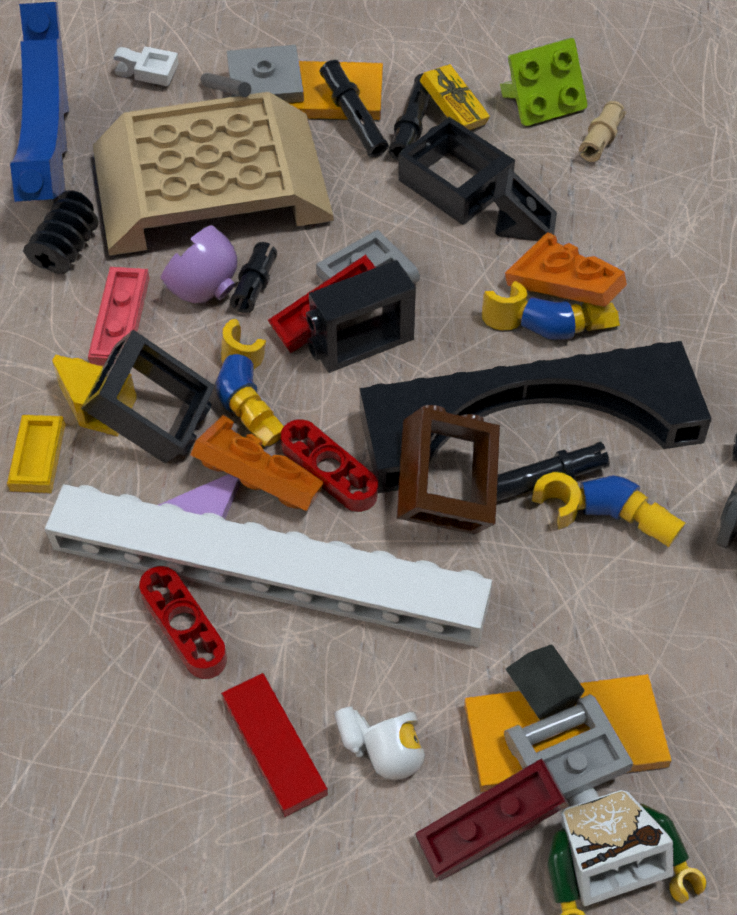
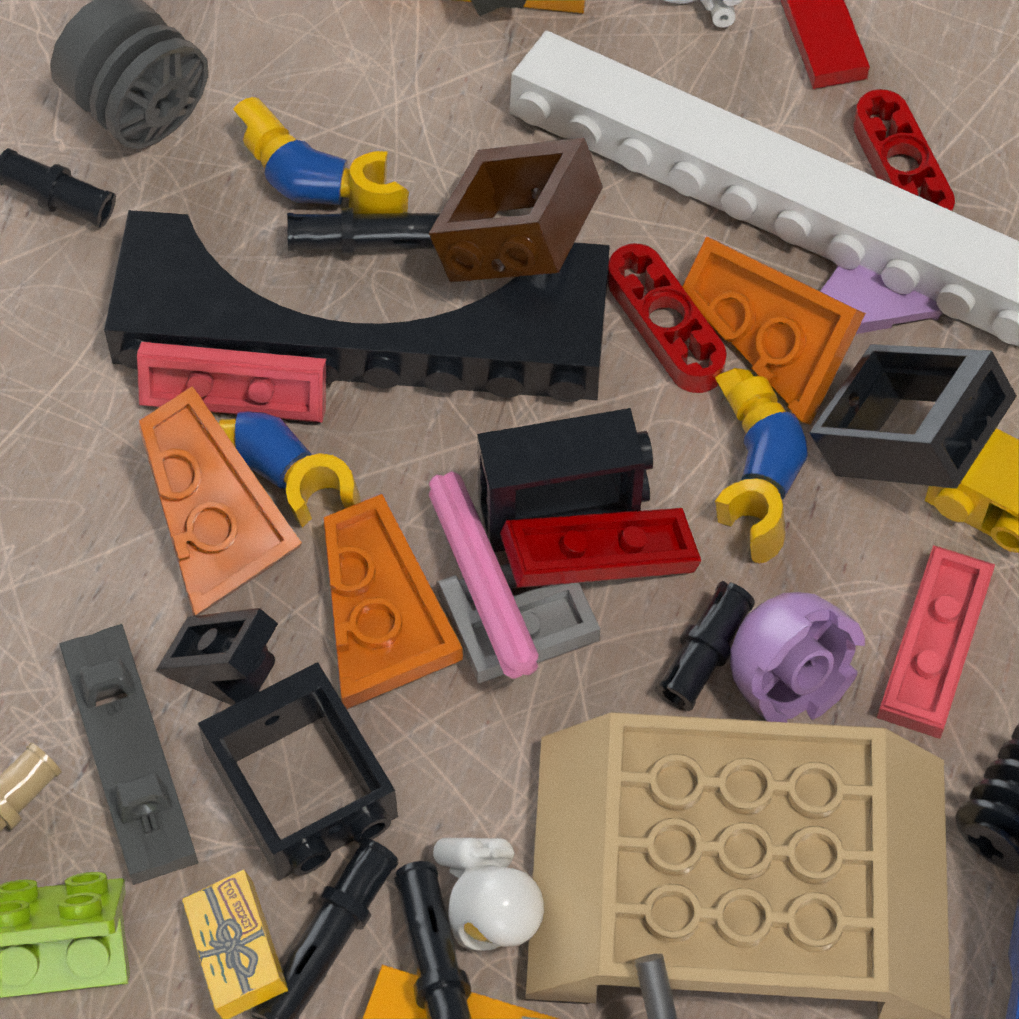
camera: 165 degrees left, 5 degrees up
(336, 137) = (489, 901): none -> white piece
(382, 253) = (483, 576): none -> bright pink axle
(446, 258) = (382, 605): none -> orange wing
(553, 173) = (128, 755): none -> dark grey hinge
(590, 344) = (234, 380): none -> coral tile

